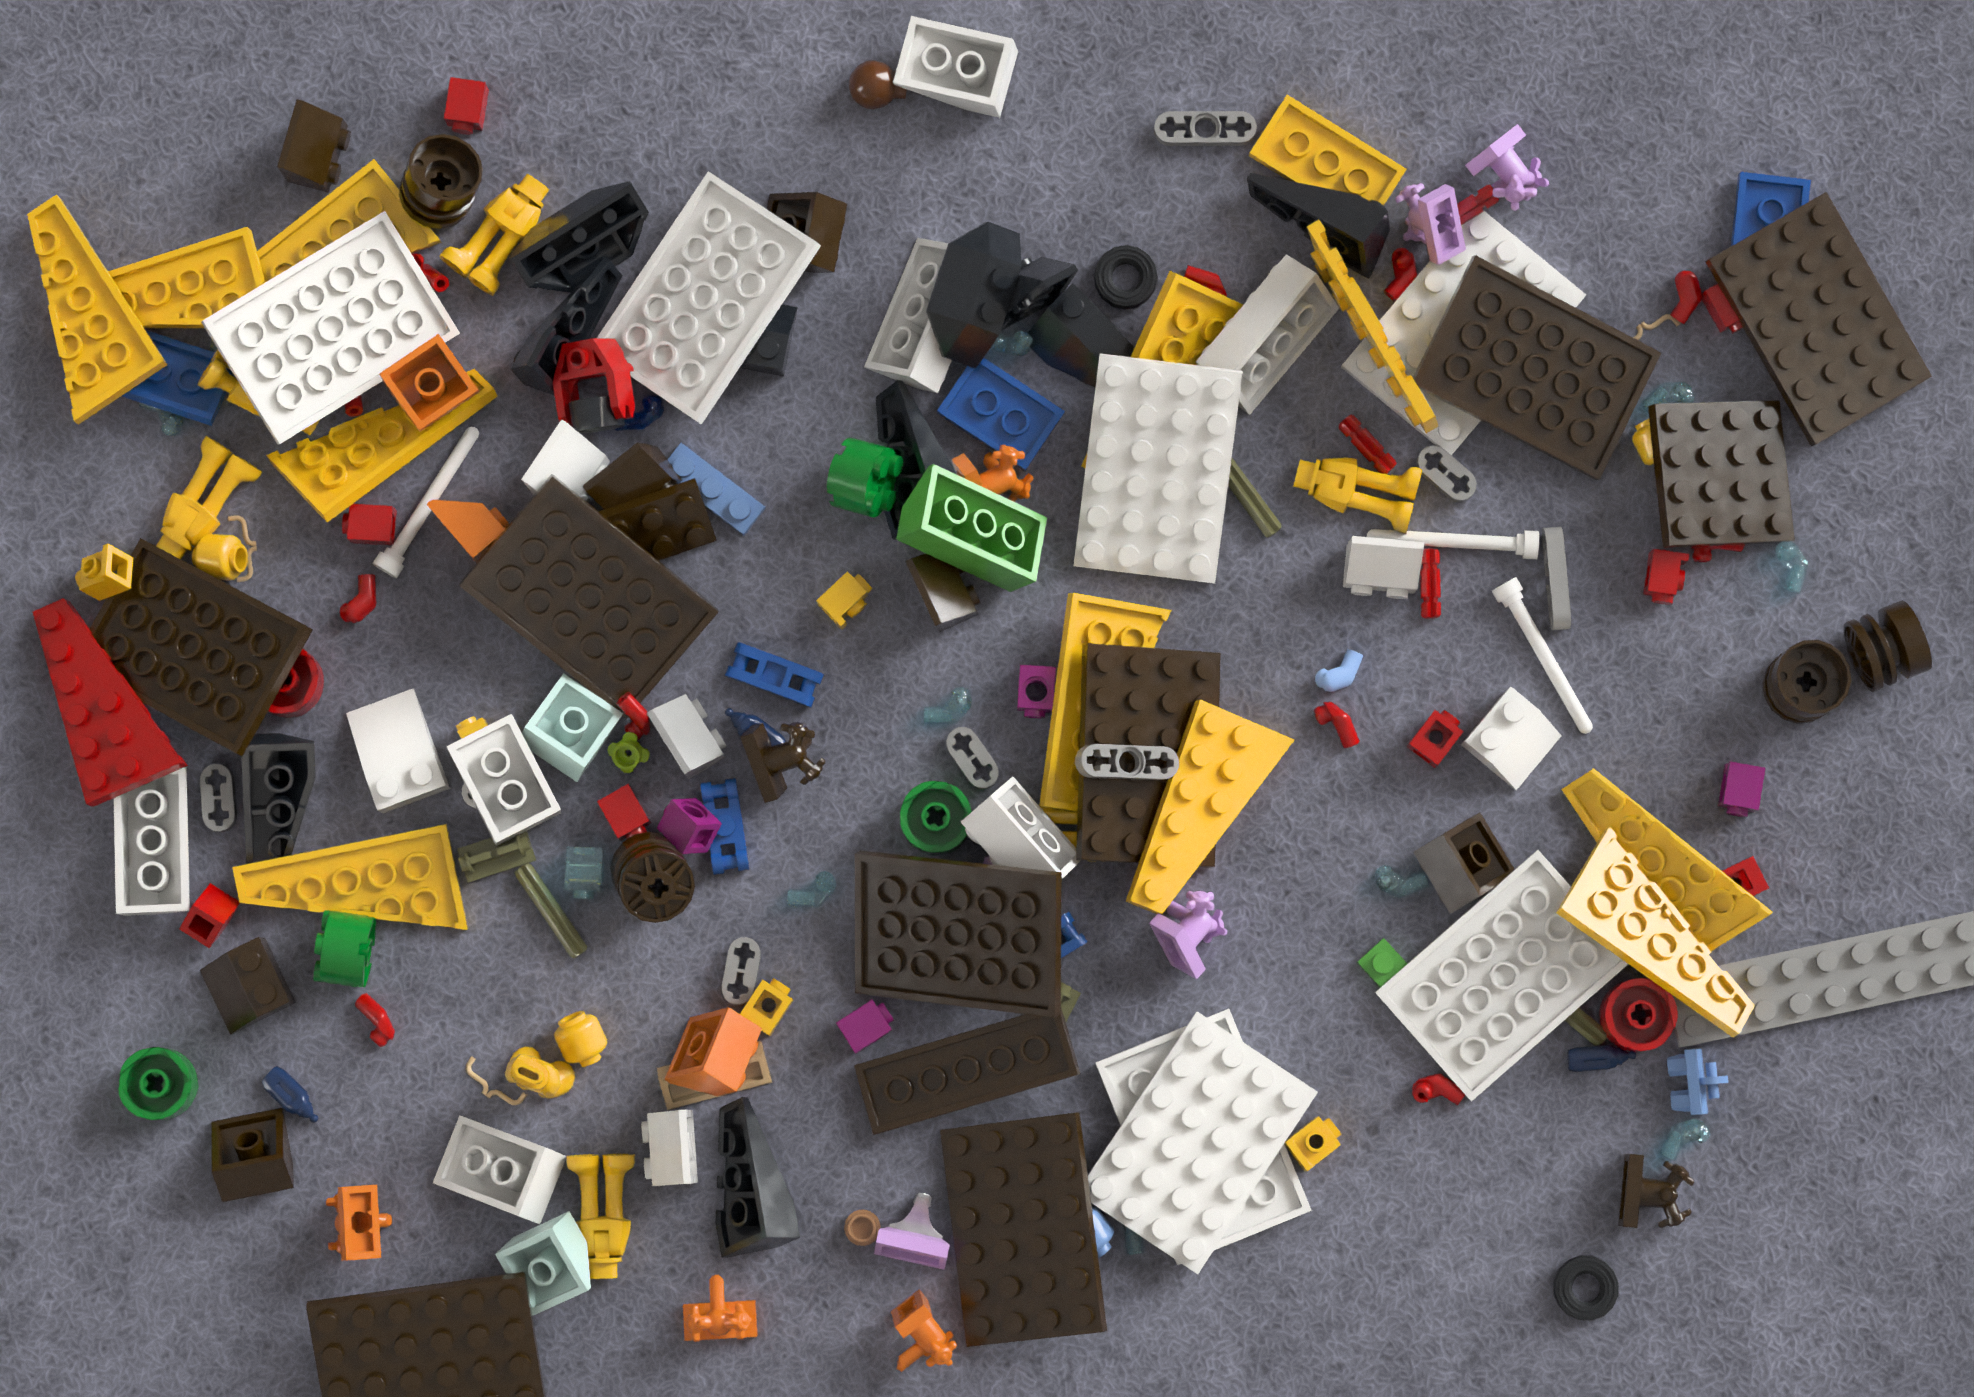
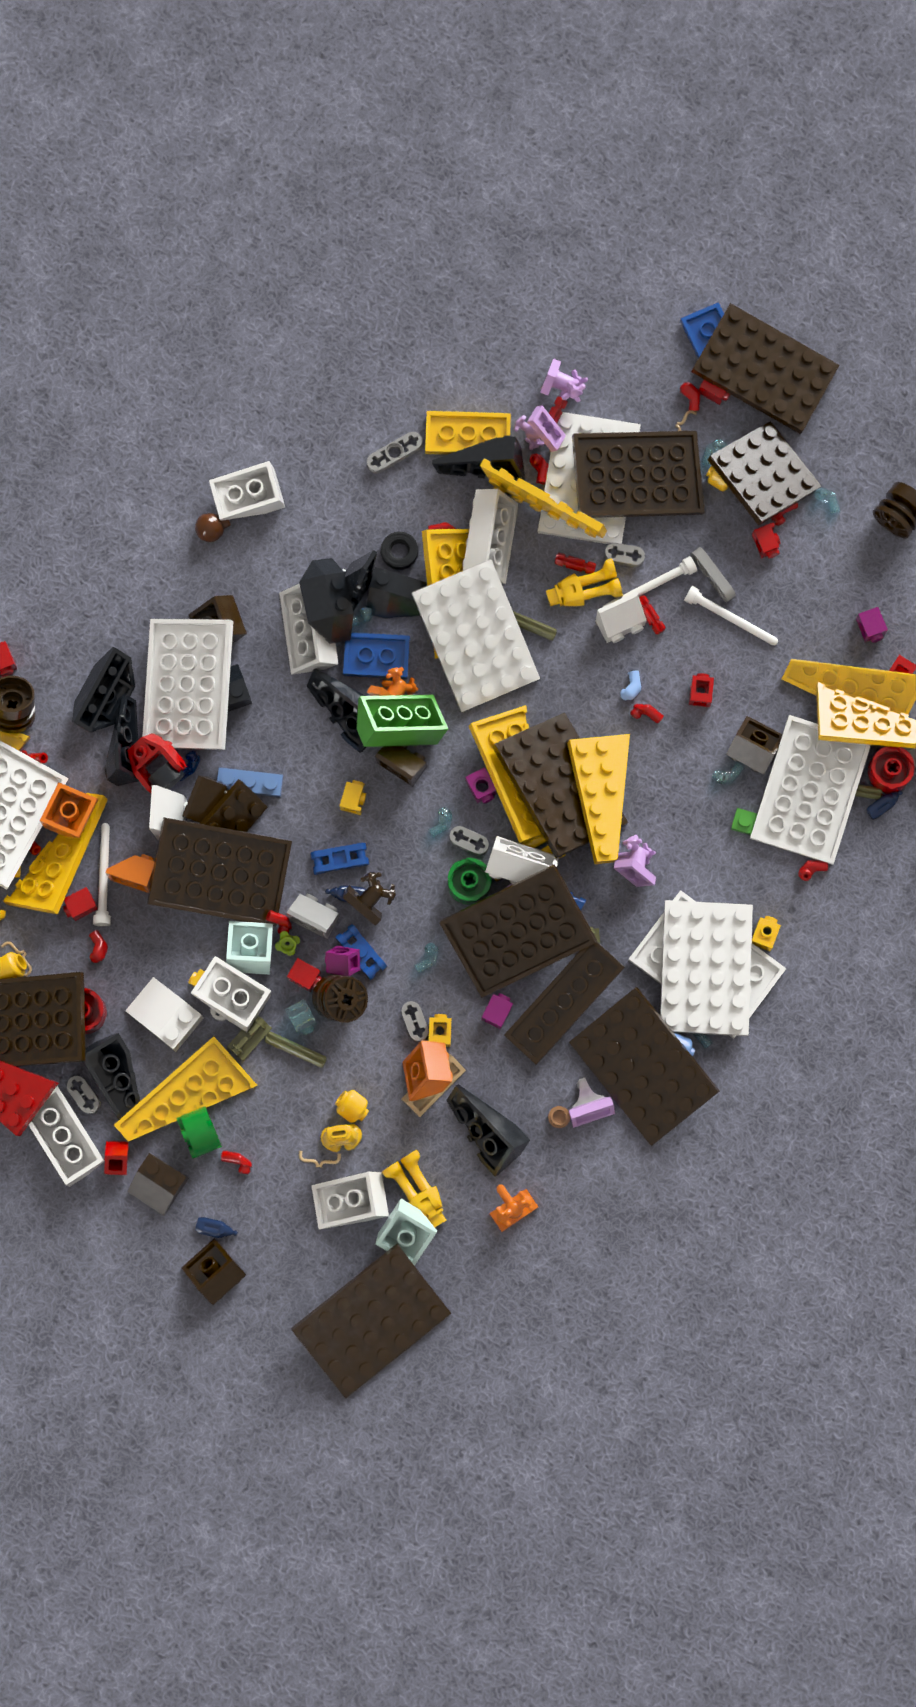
camera: 30 degrees left, 5 degrees down
(137, 1081) = (130, 1270): green brick -> none
(358, 1222) = (291, 1271): orange piece -> none
(513, 213) = (58, 701): yellow piece -> none
(671, 1148) = (434, 1133): white slope -> none
(864, 478) = (326, 728): green brick -> none
(916, 1319) = (616, 1146): orange piece -> none
(1151, 753) = (546, 798): light grey beam -> none
(1512, 738) = (740, 668): white slope -> none
(1820, 667) = (876, 541): dark brown wheel -> none

